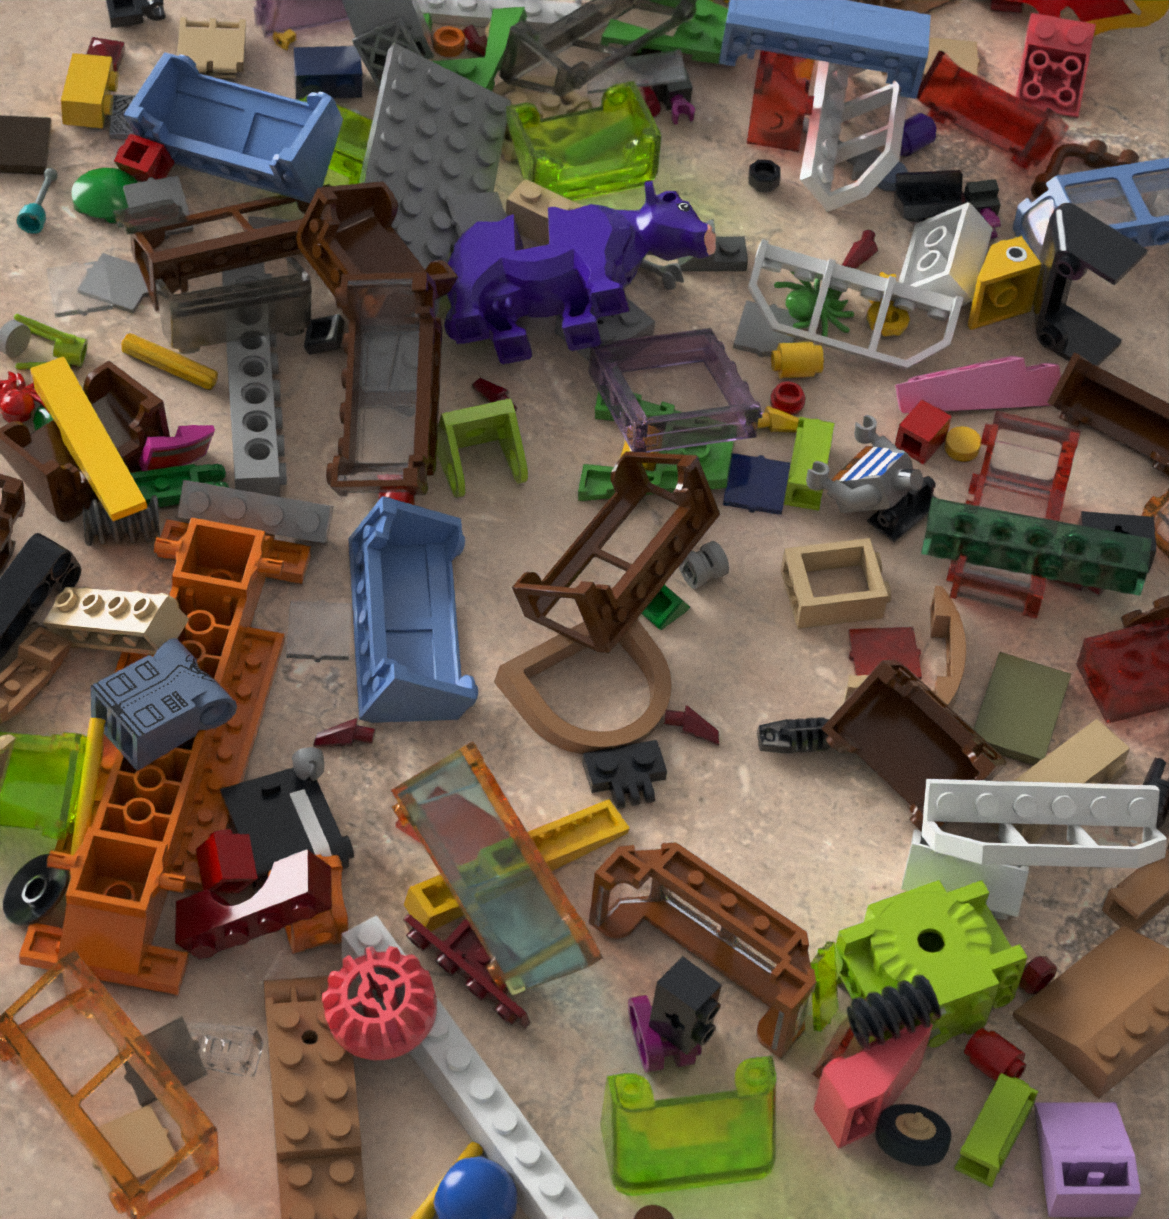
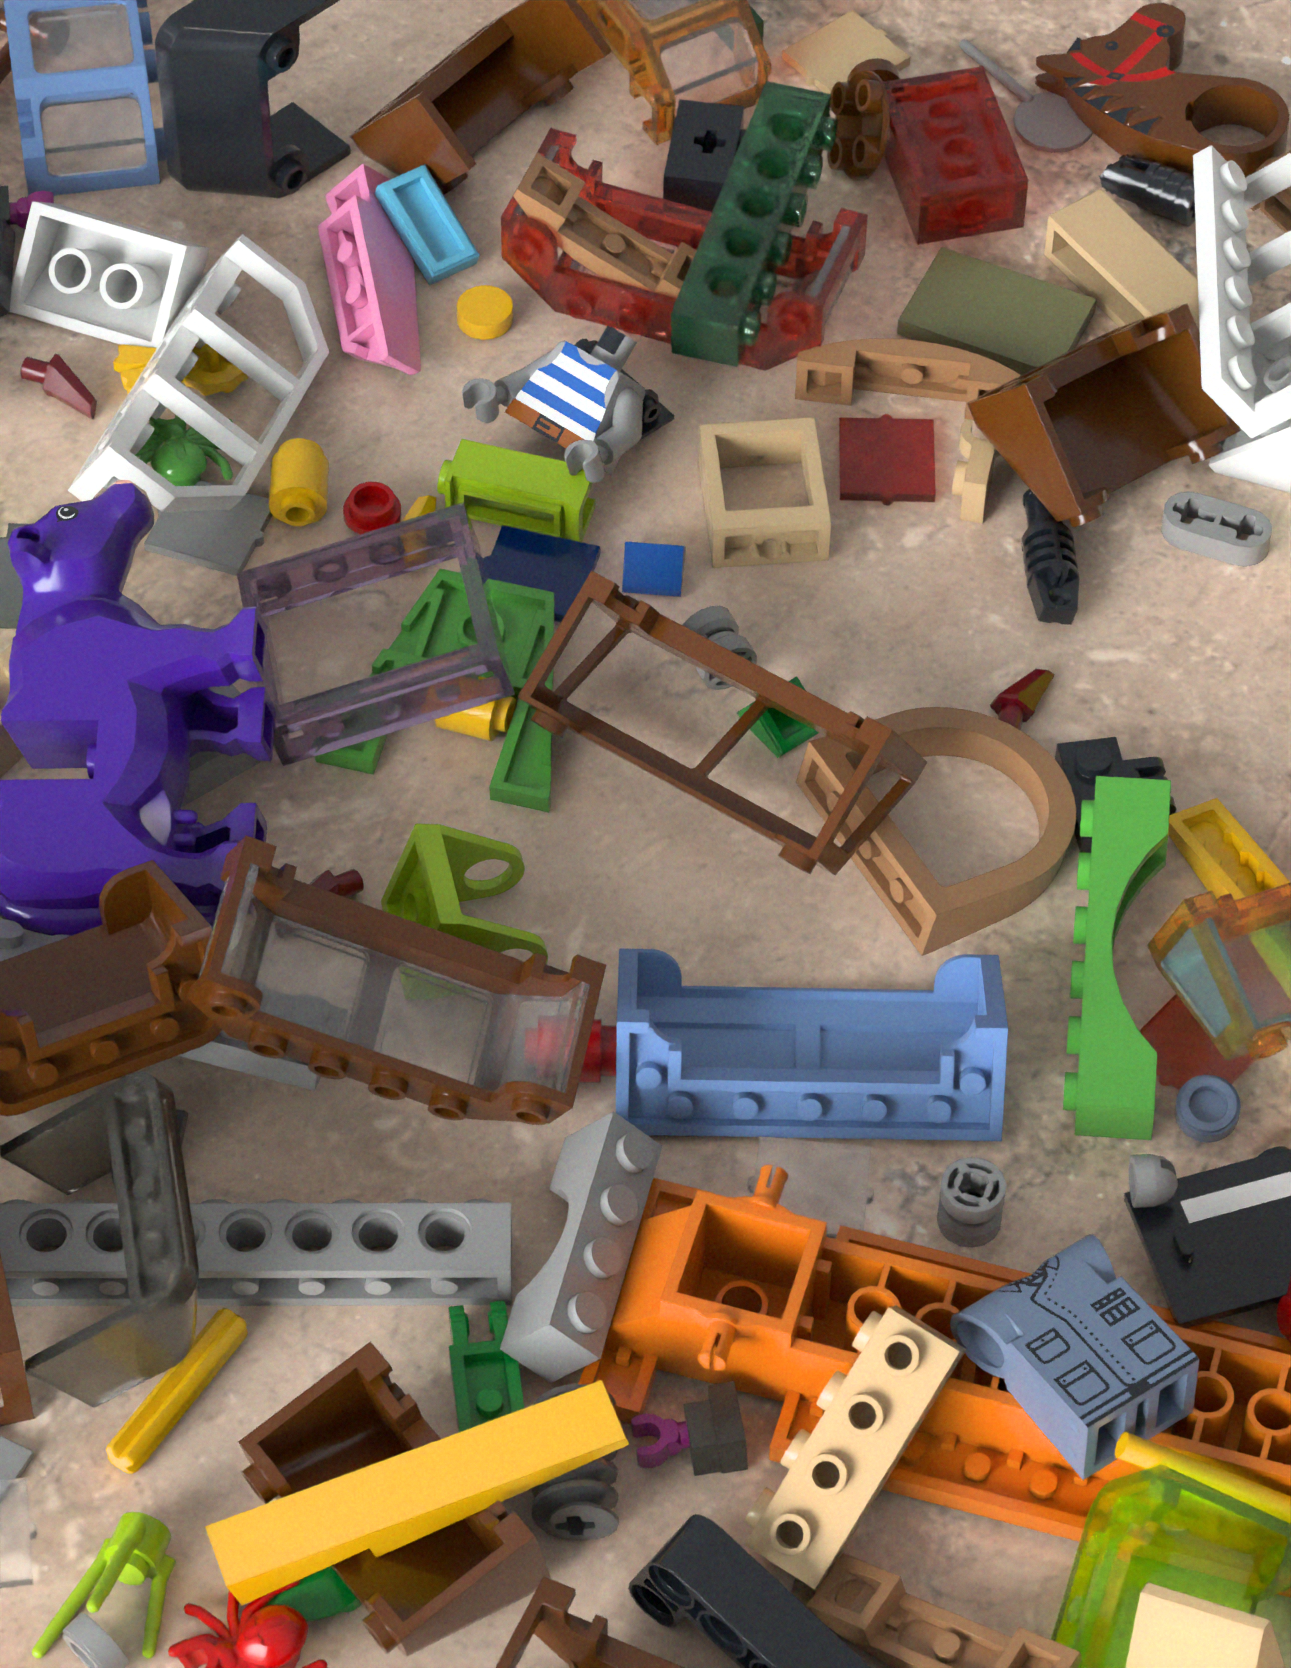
camera: 80 degrees left, 0 degrees up
(146, 574) = (710, 1431): none -> pearl dark grey piece
(186, 447) = (417, 1365): slope -> none
(306, 697) = (971, 1202): none -> light grey wheel
(344, 735) = (1036, 1161): dark red bar -> none
(384, 820) = (1207, 1108): none -> sand blue tile
(560, 758) = (1116, 1062): none -> bright green arch
(770, 535) = (653, 568): none -> blue slope
(848, 828) = (1216, 528): none -> light grey beam
(923, 431) = (467, 345): red brick -> none
(1005, 283) = (185, 190): yellow slope -> none
(1012, 460) = (594, 236): none -> medium nougat slope
(1026, 399) = (427, 224): none -> medium azure tile

